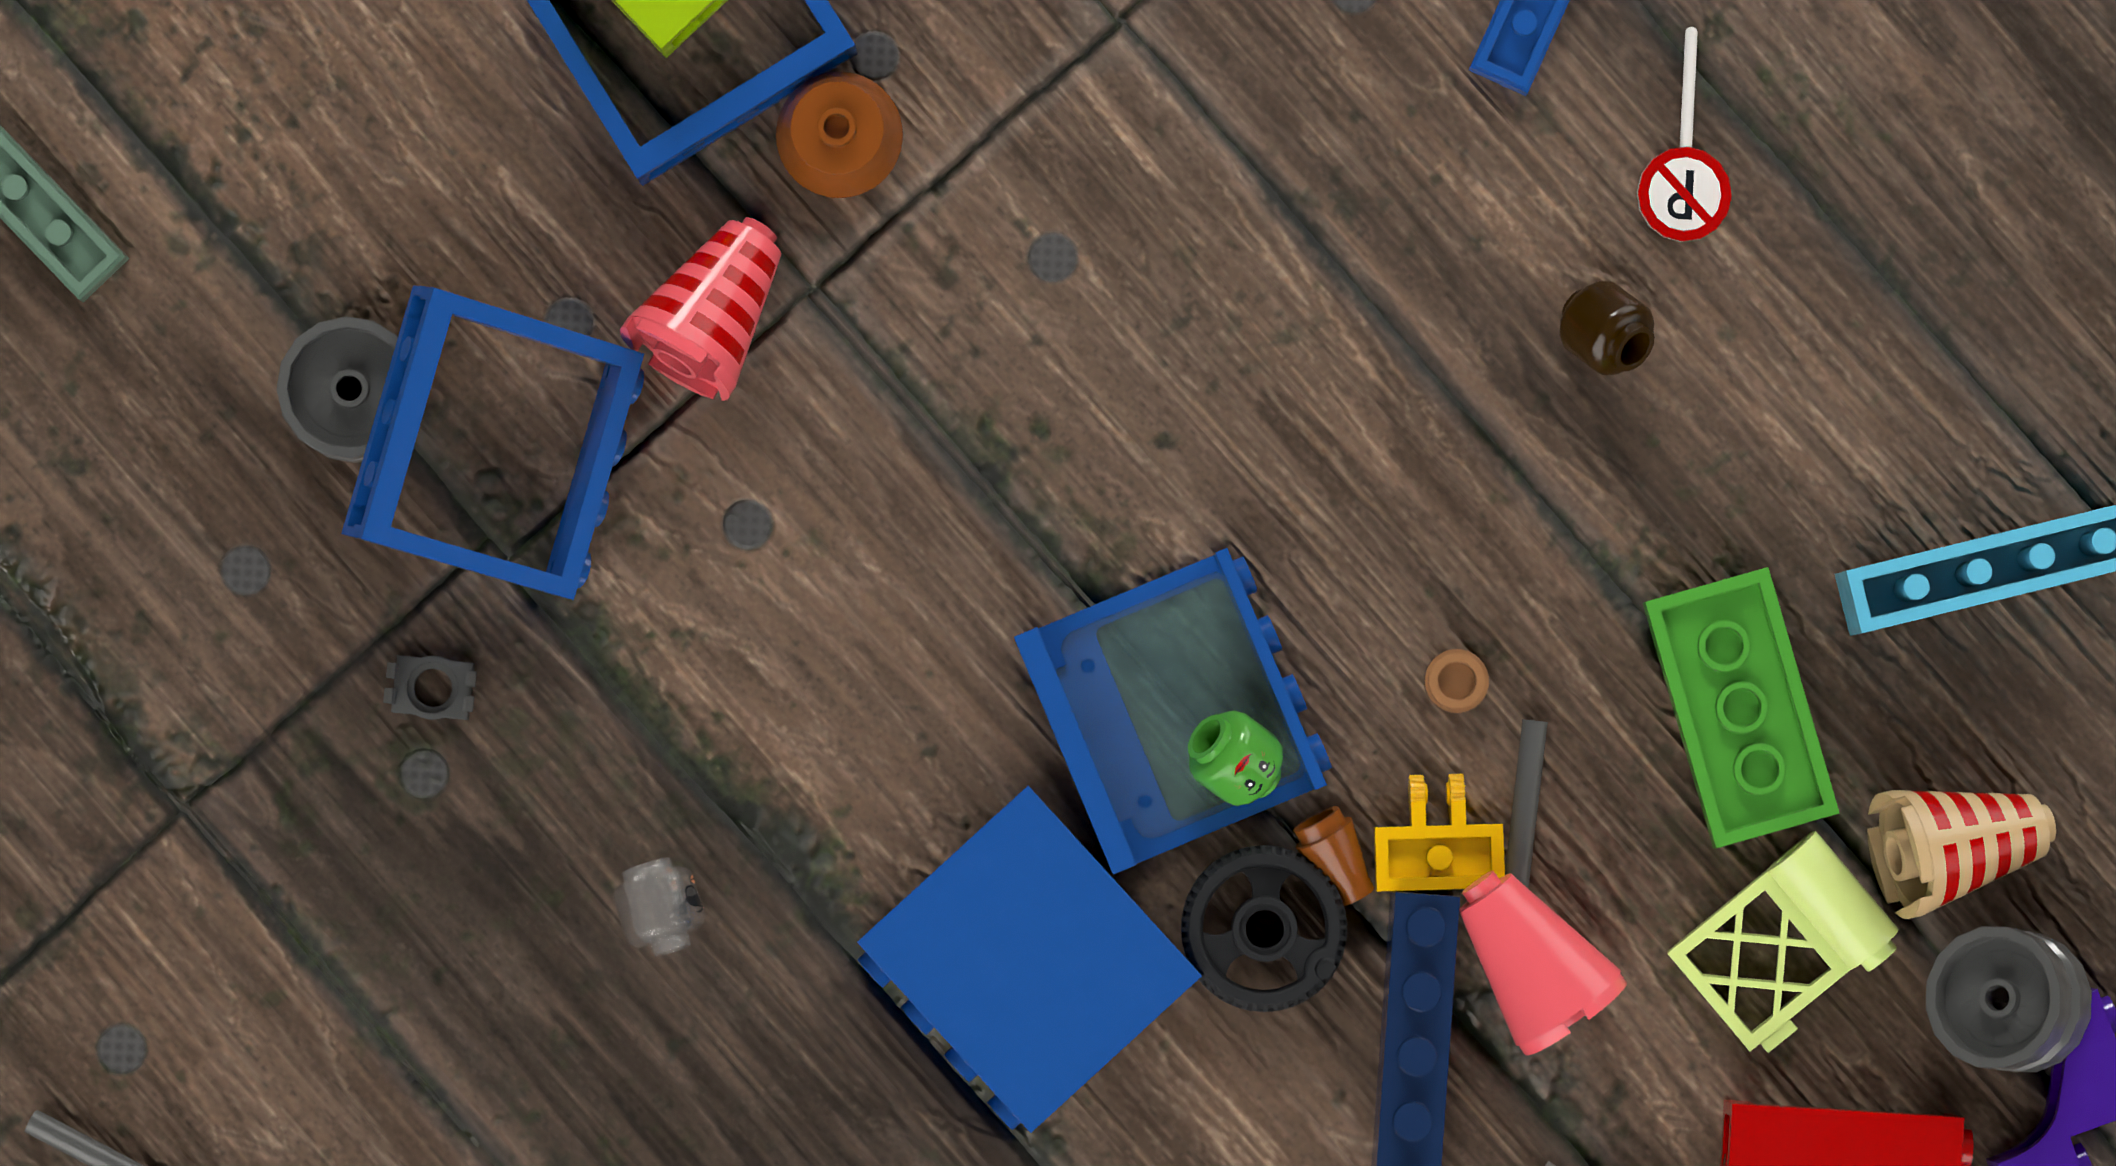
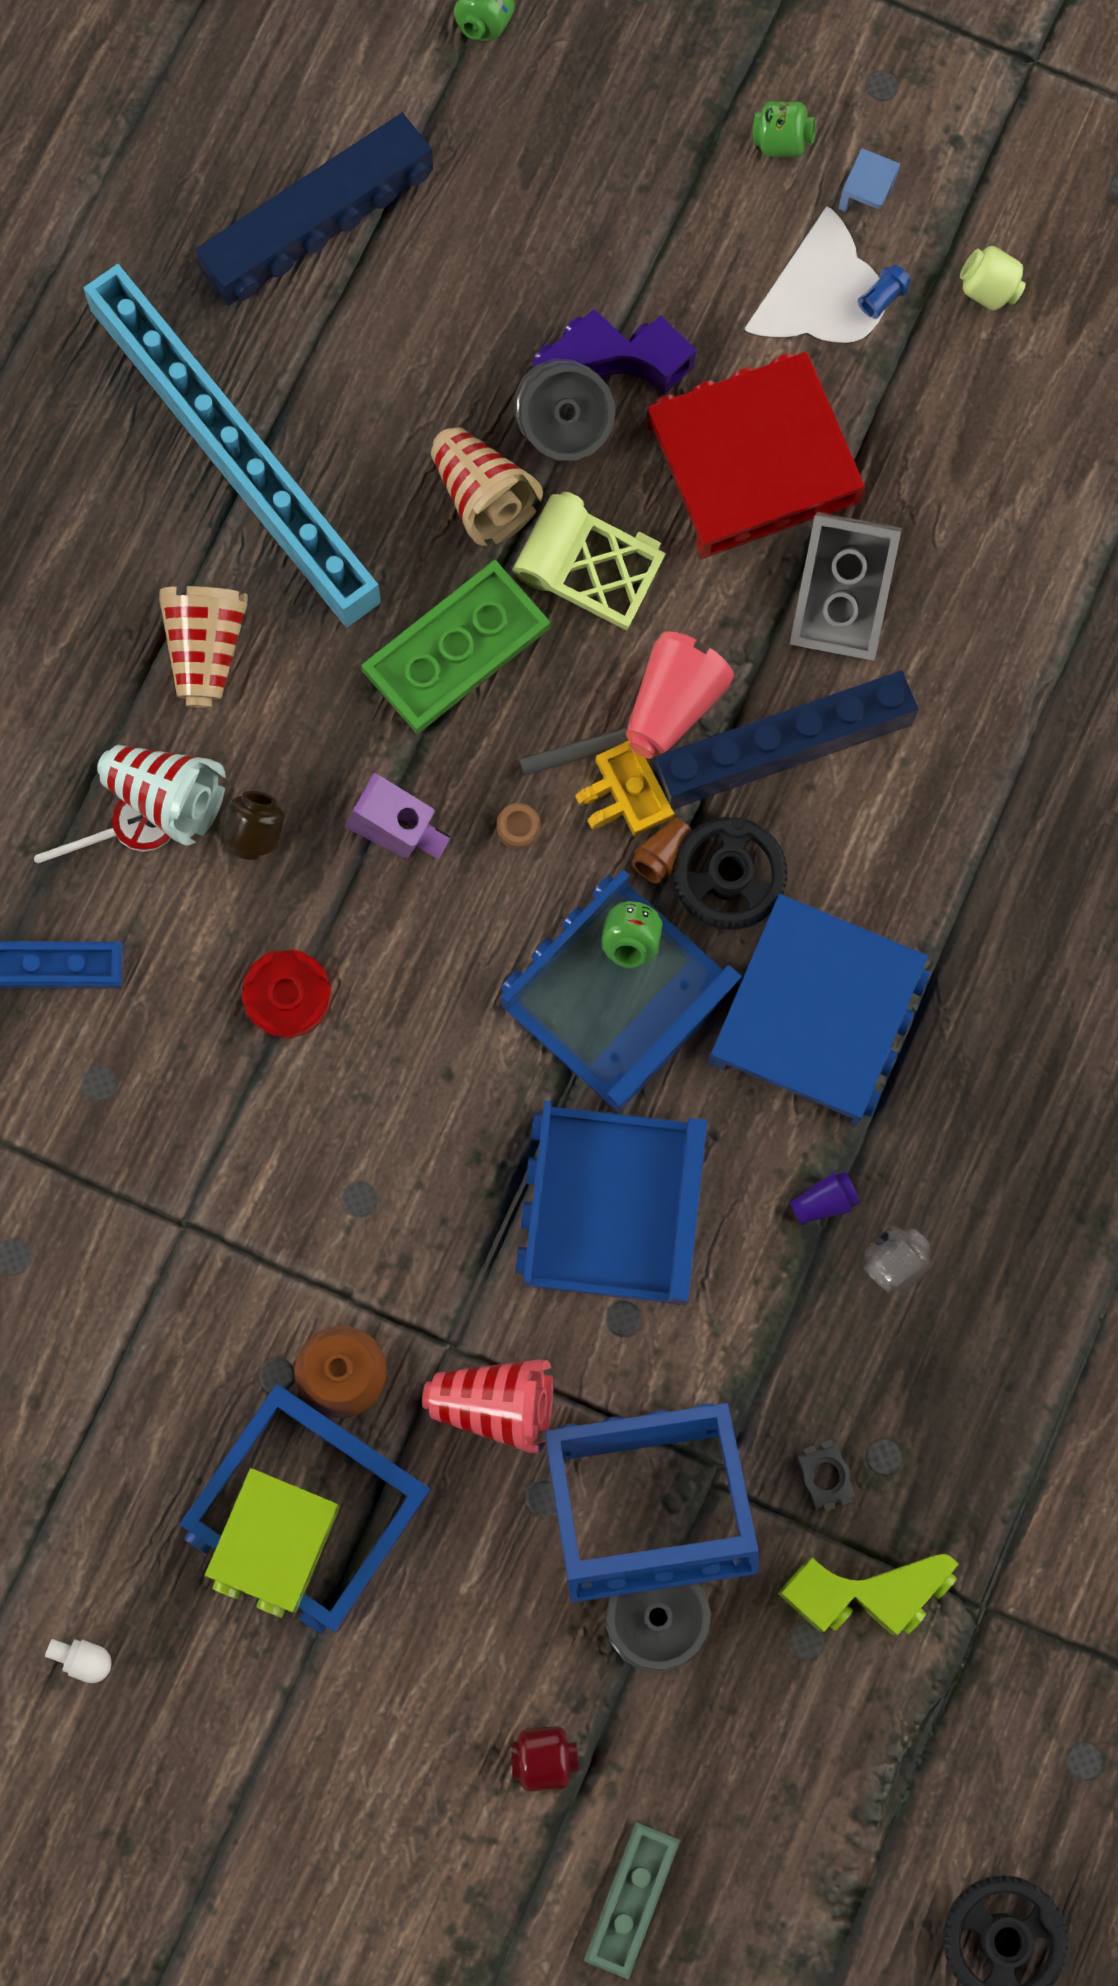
camera: 120 degrees left, 10 degrees down
(248, 693) = (889, 1598): none -> lime arch
(251, 176) = (543, 1759): none -> dark red head
(778, 854) = (825, 1199): none -> dark purple cone
(898, 573) = (612, 1205): none -> blue panel
(1364, 278) = (286, 993): none -> red tile
(1551, 501) = (378, 817): none -> medium lavender torso
(1708, 233) = (166, 788): none -> light aqua cone
(1895, 368) = (201, 639): none -> tan cone

